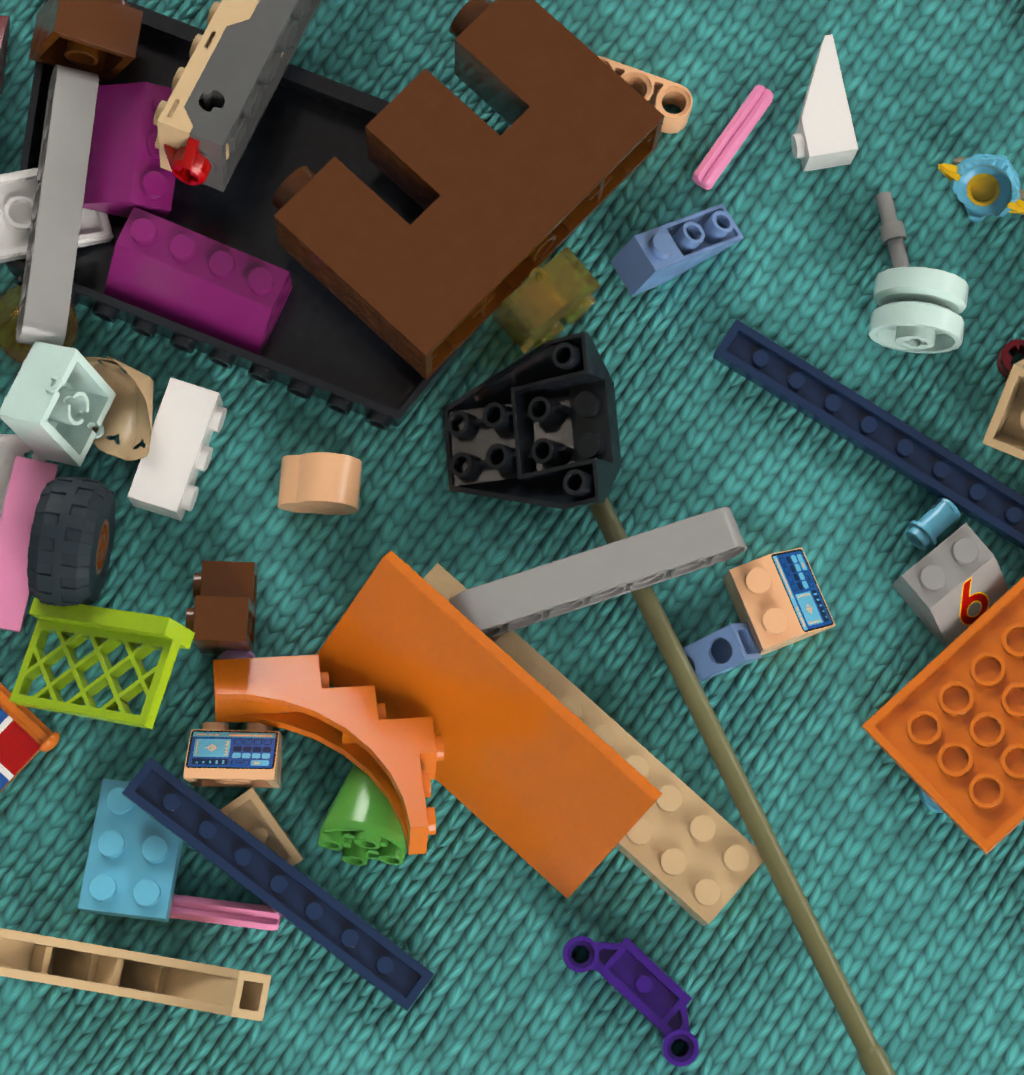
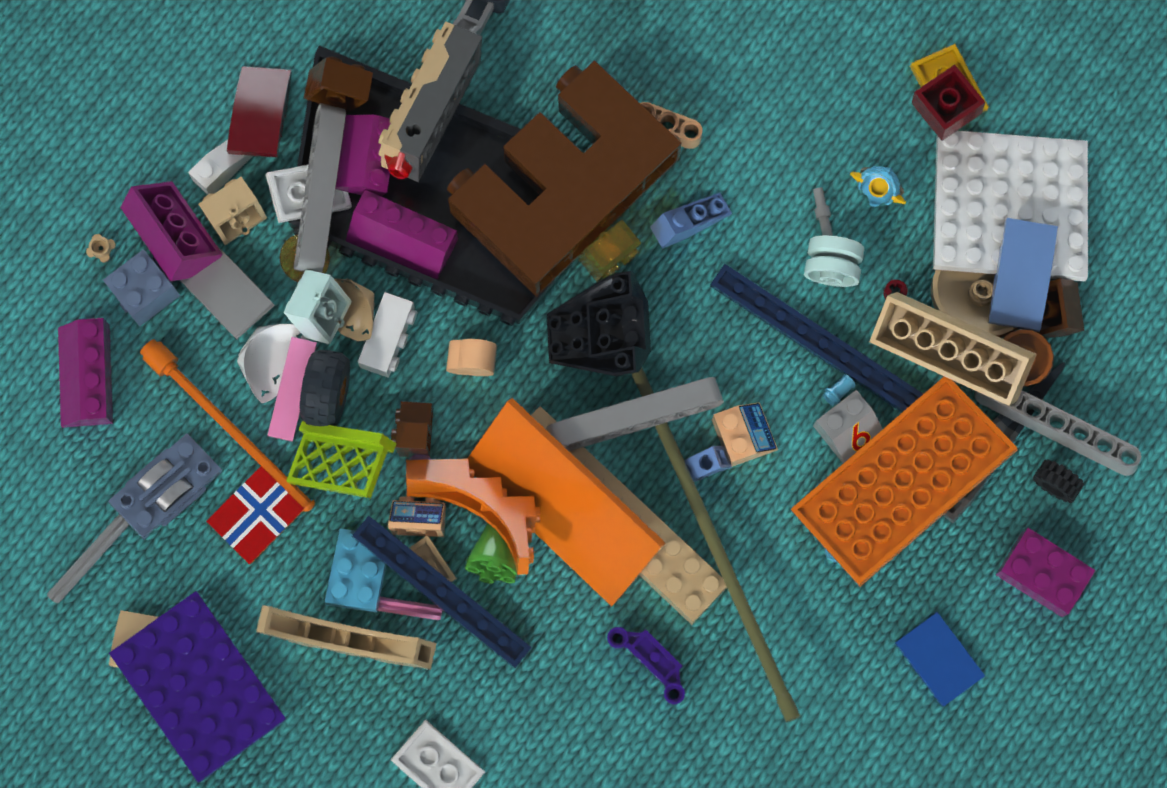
camera: 10 degrees right, 0 degrees up
(732, 137) = (727, 152): bright pink axle -> none
(825, 124) = (783, 145): white slope -> none

